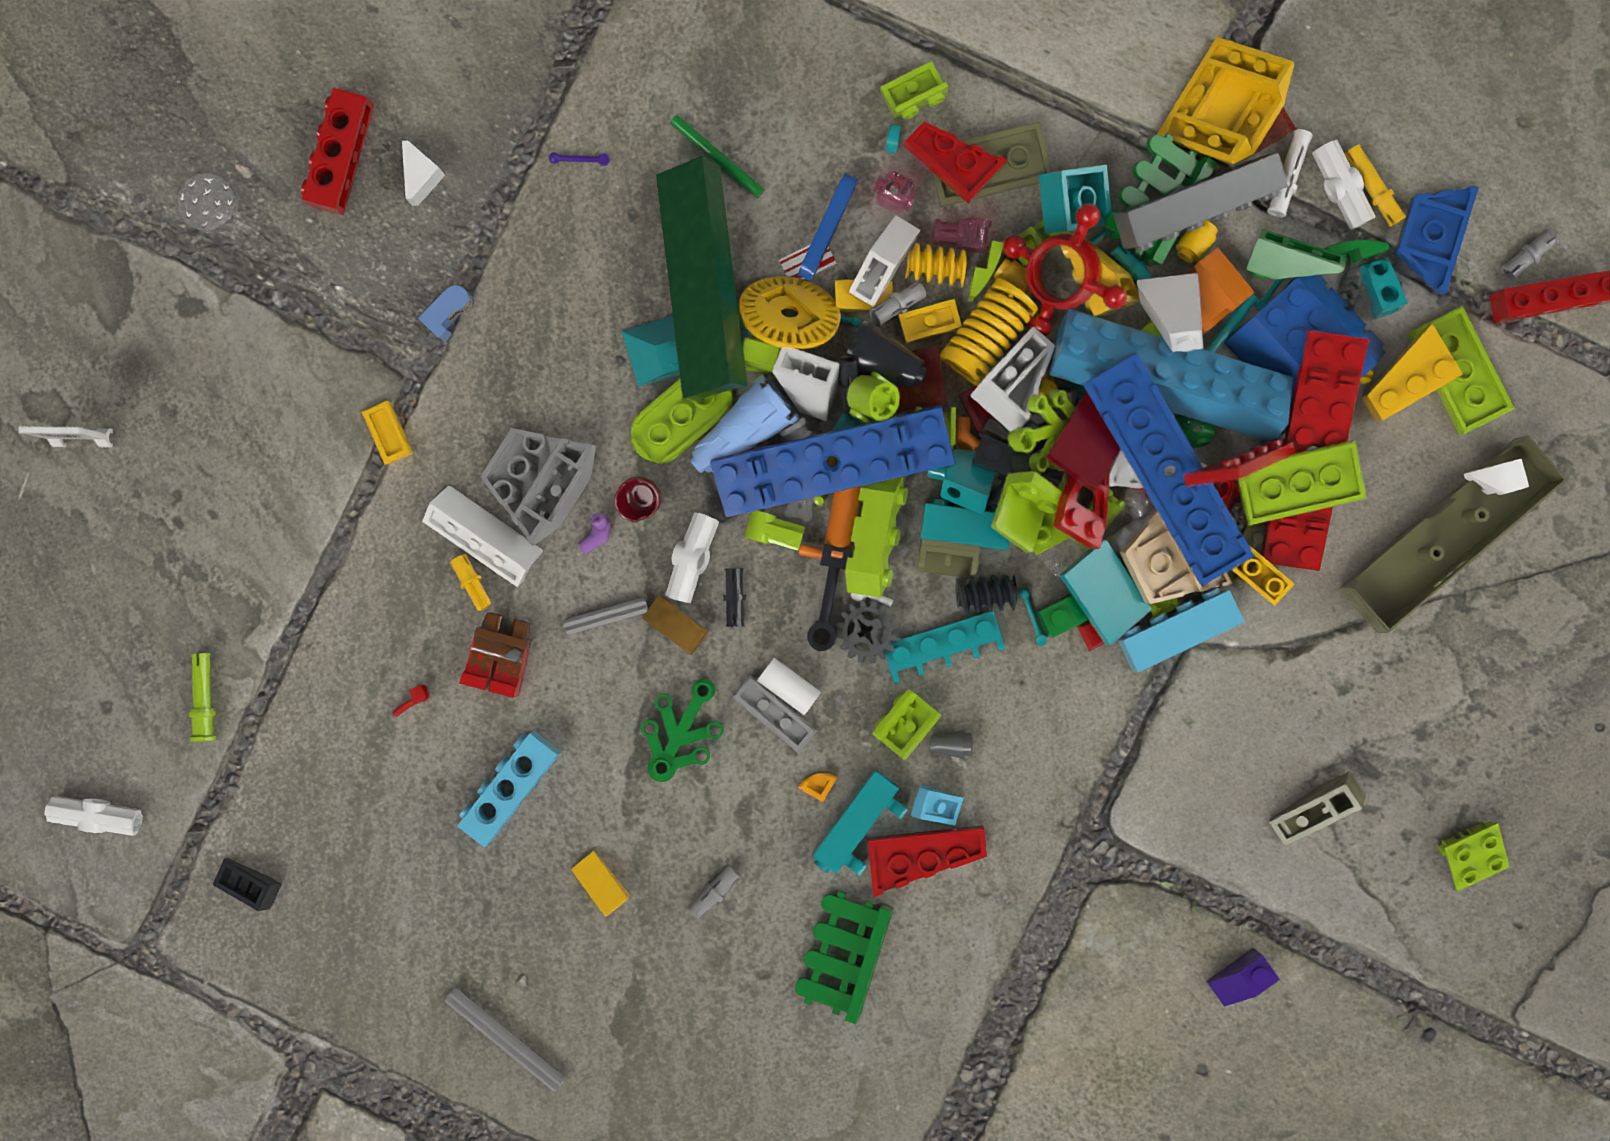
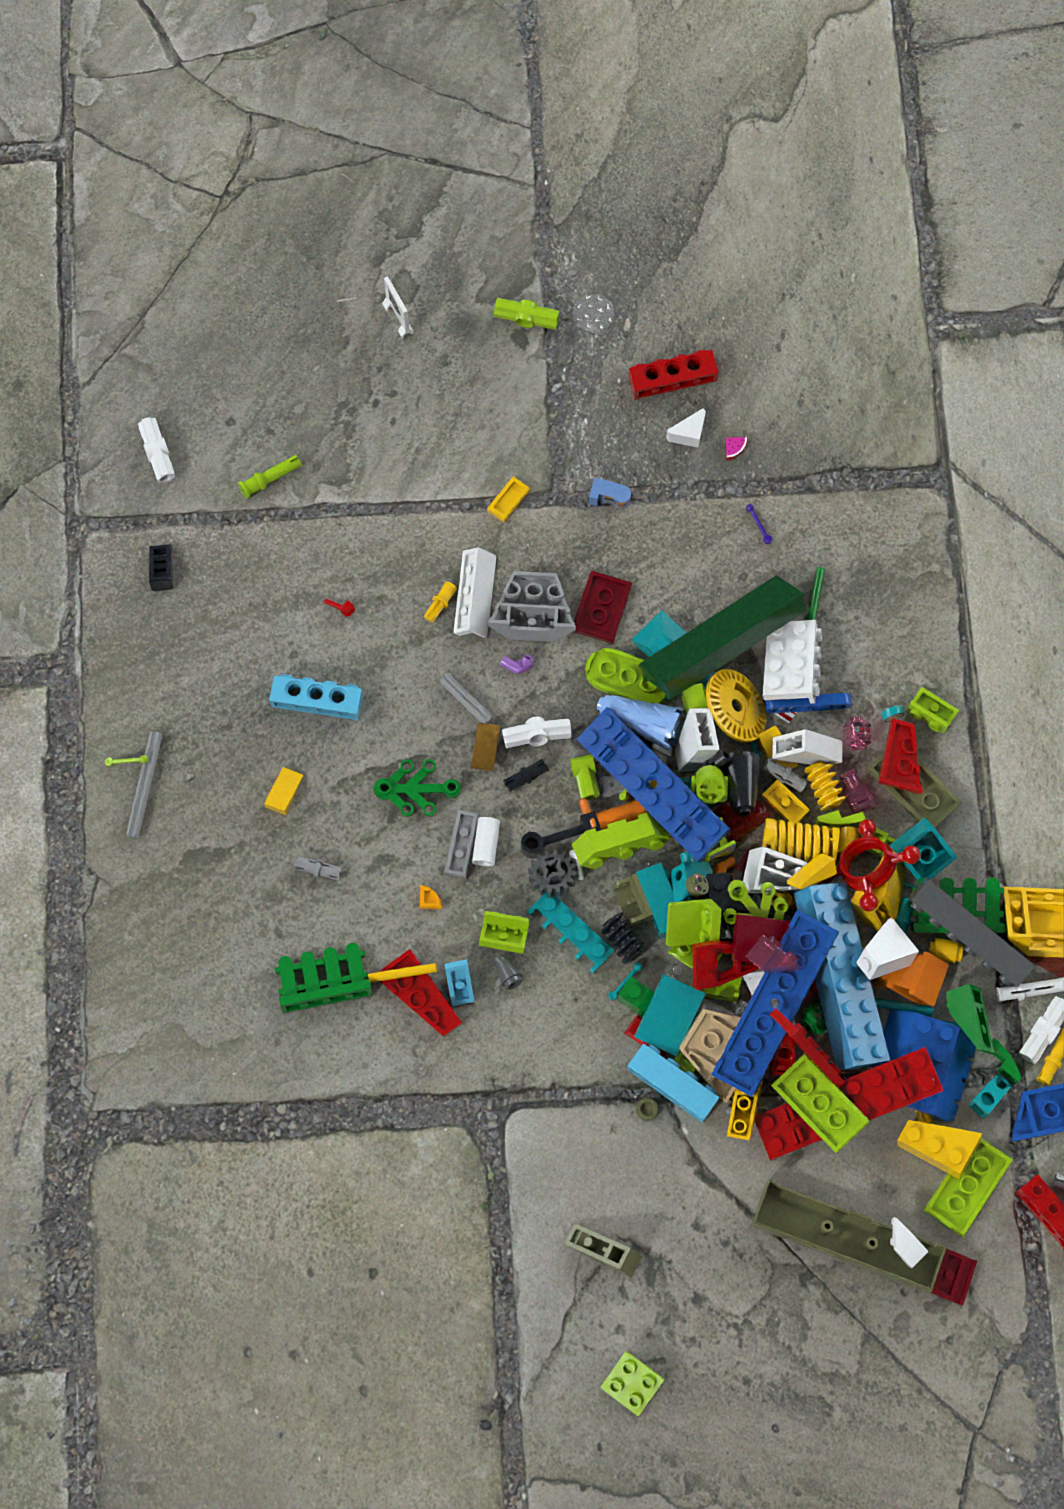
camera: 60 degrees right, 15 degrees down
(162, 282) = (526, 313): none -> lime piece
(456, 1063) = (110, 762): none -> lime hinge
(469, 132) = (735, 447): none -> dark pink tile
(498, 657) = (399, 644): hips -> none
(580, 397) = (602, 606): none -> dark red tile
(637, 499) = (555, 676): dark red hair -> none
(773, 218) = (792, 661): none -> white bracket
(855, 822) = (418, 935): teal brick -> none
(891, 864) = (403, 972): none -> yellow bar
(981, 479) = (697, 885): none -> olive tile
(1041, 339) = (815, 871): none -> yellow slope
(1124, 447) = (770, 958): none -> clear pink slope
(1188, 673) = (647, 1109): none -> olive tile
(1243, 978) = (454, 1261): dark purple slope -> none
(1555, 441) = (954, 1277): none -> dark red plate

